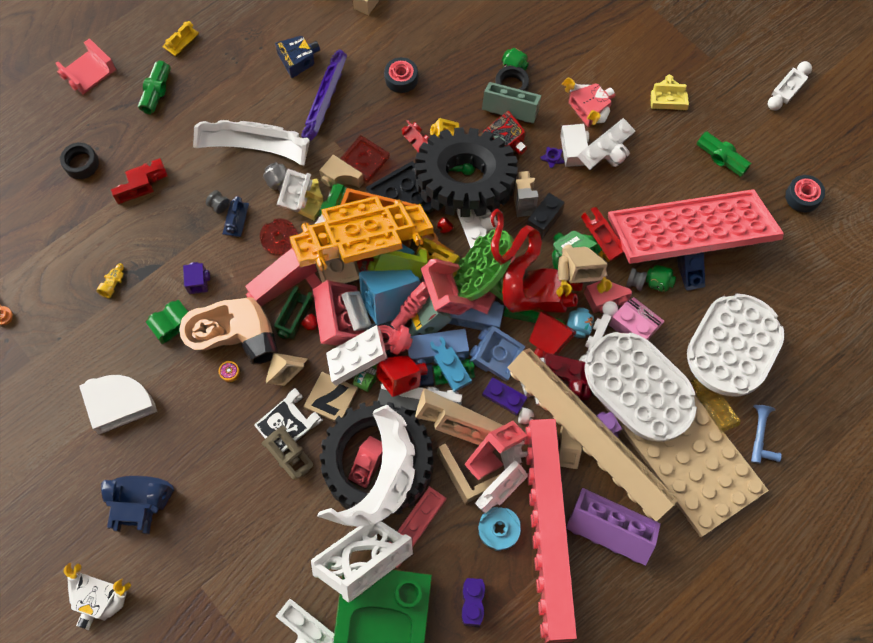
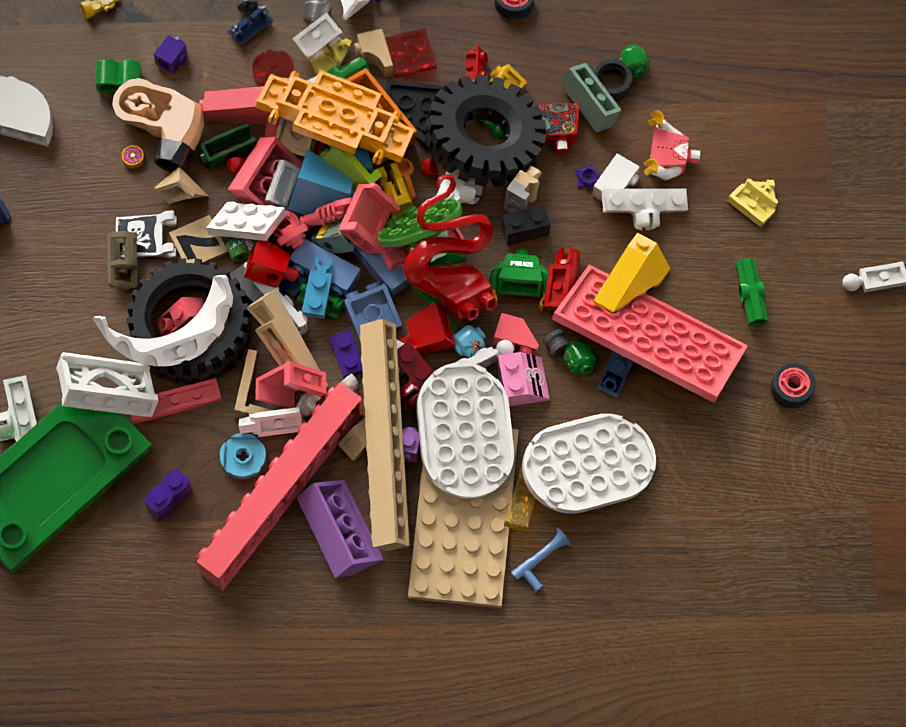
camera: 35 degrees right, 0 degrees up
(581, 265) = (504, 288): tan torso -> none
(645, 196) = (633, 275): none -> yellow wedge

